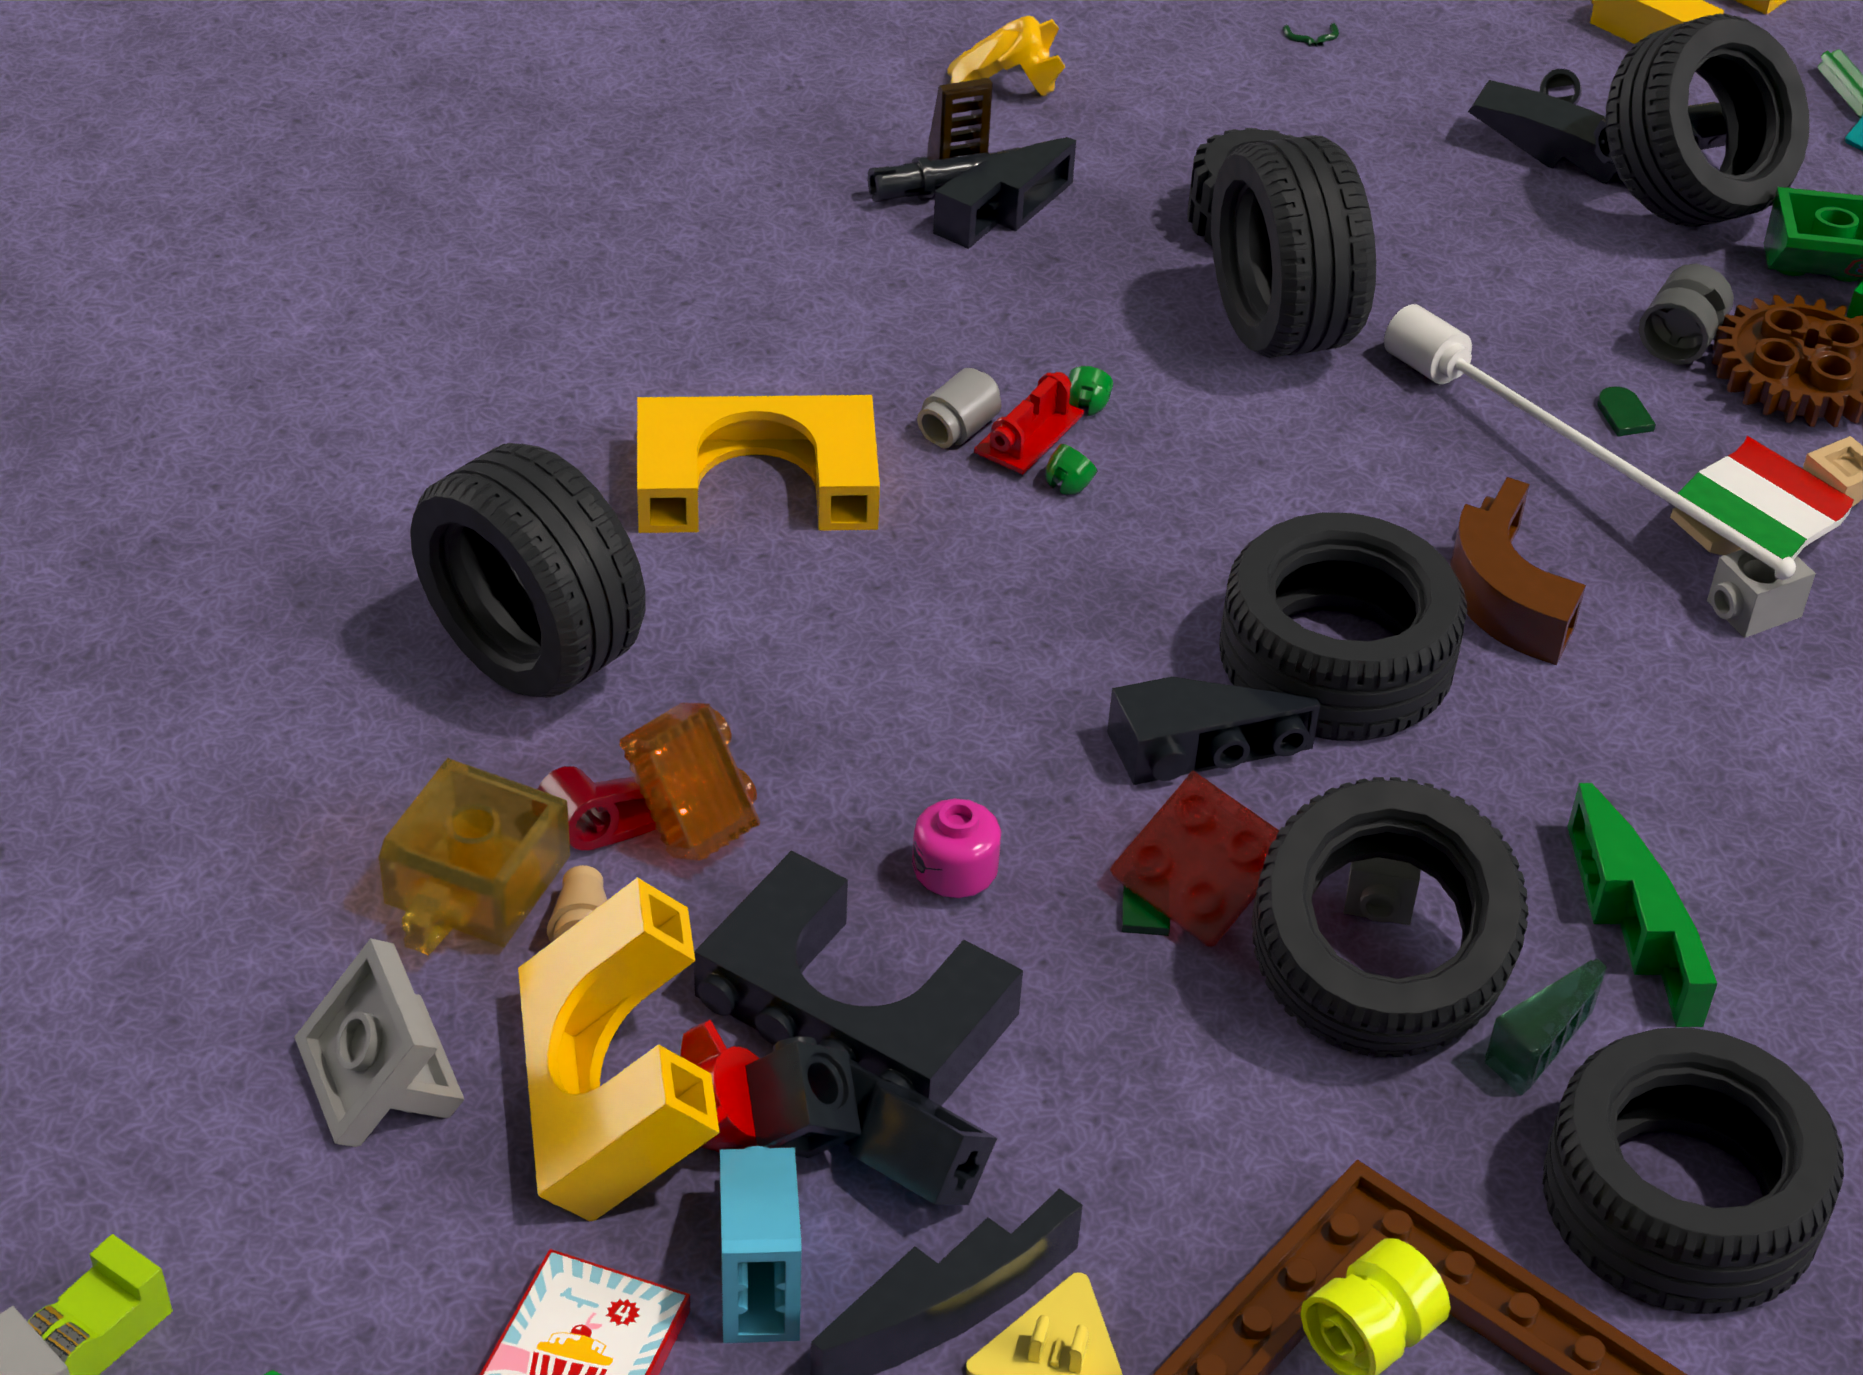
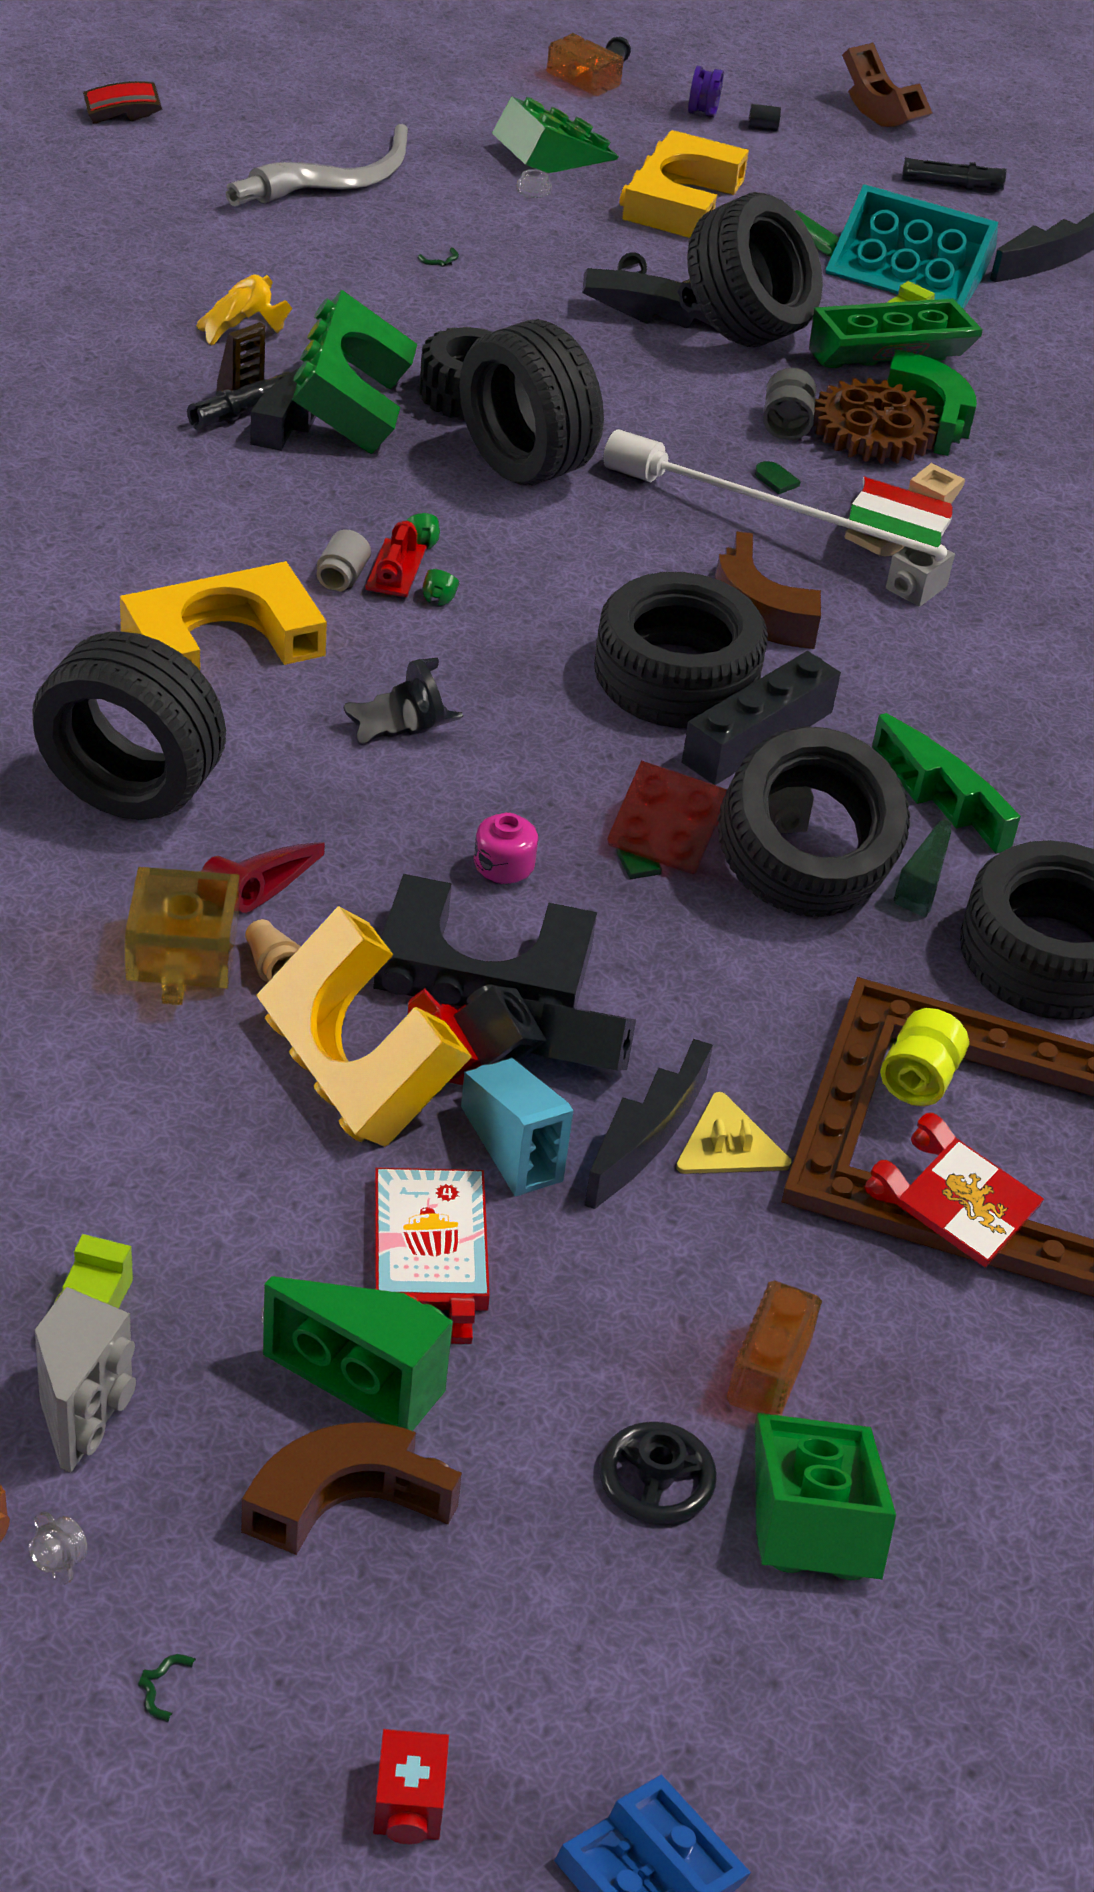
camera: 25 degrees left, 0 degrees up
(375, 1049) = (187, 1070): light grey bracket -> none
(691, 780) = (309, 844): clear orange brick -> none
(940, 626) = (408, 708): none -> black hair
(1052, 184) = (331, 388): none -> green arch
(1198, 726) = (613, 736): black slope -> none
(1427, 737) = (783, 699): none -> black brick

